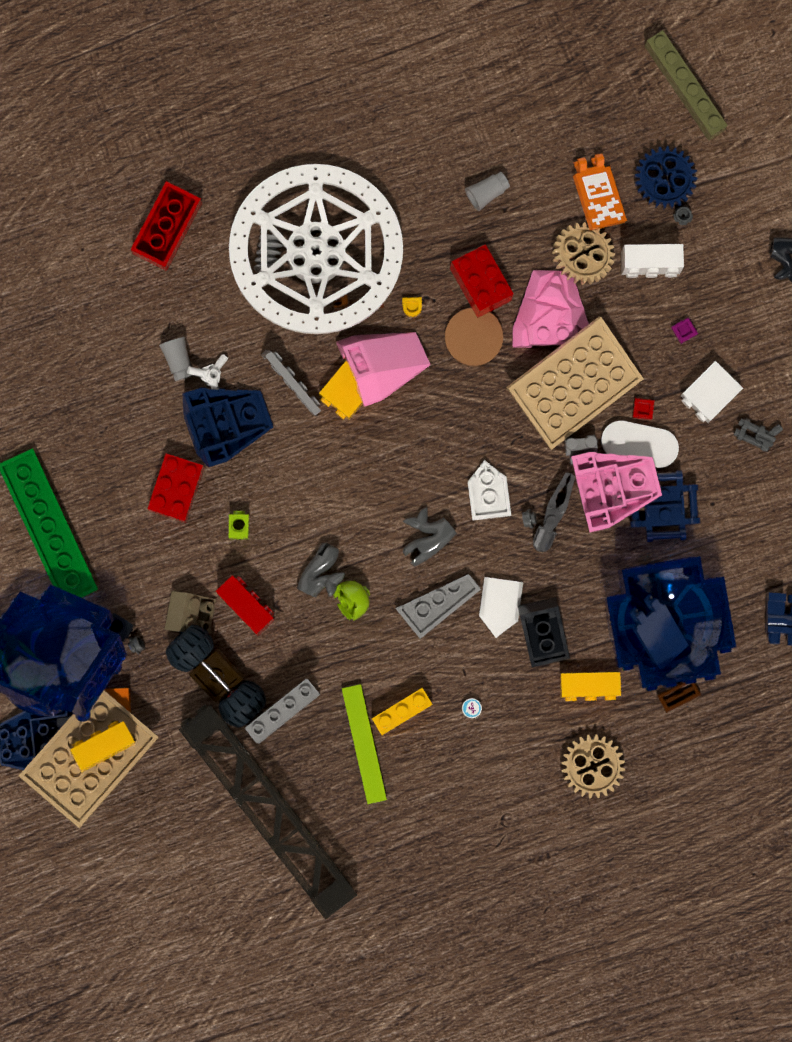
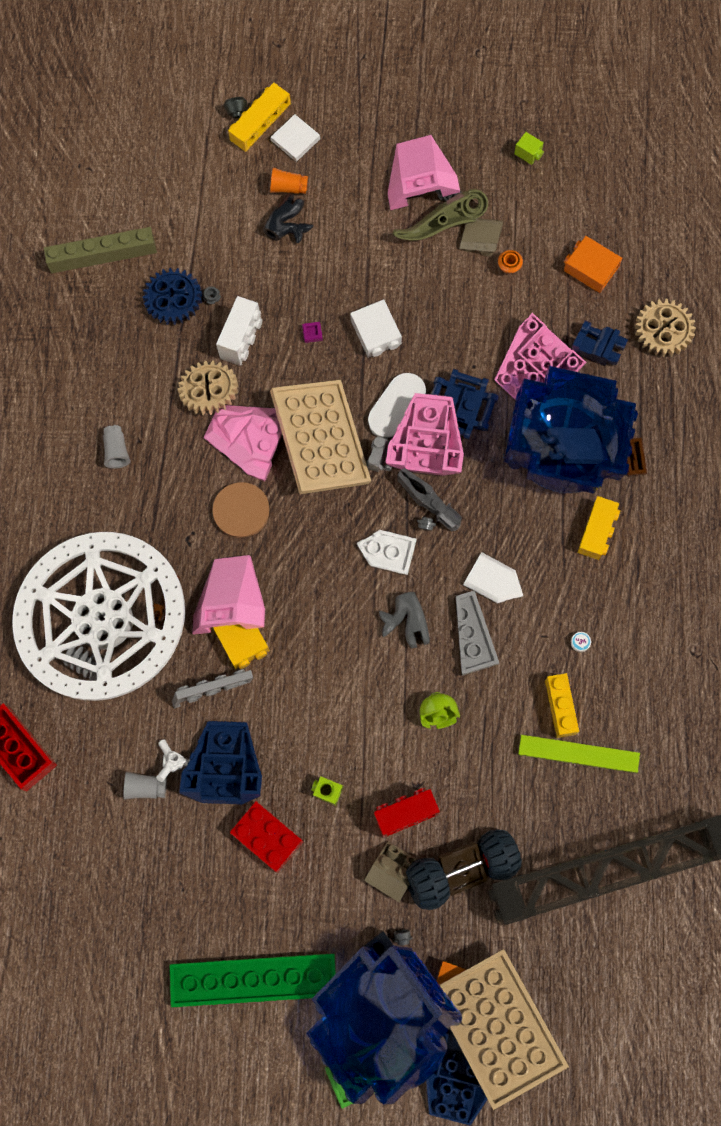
camera: 60 degrees left, 10 degrees down
(101, 746) = (494, 1010): yellow brick -> none
(282, 711) = (522, 816): light grey fence -> none
(322, 561) = (392, 725): dark grey piece -> none
(412, 306) = (189, 553): yellow tile -> none
(481, 281) = (193, 482): red brick -> none
(543, 632) = (534, 550): black slope -> none
(586, 749) = (656, 553): tan gear -> none
(598, 193) = (160, 355): orange tile -> none
(643, 409) = (366, 391): red tile -> none
(744, 560) = (532, 354): none -> bright pink wedge
(762, 439) = (433, 303): dark grey piece -> none

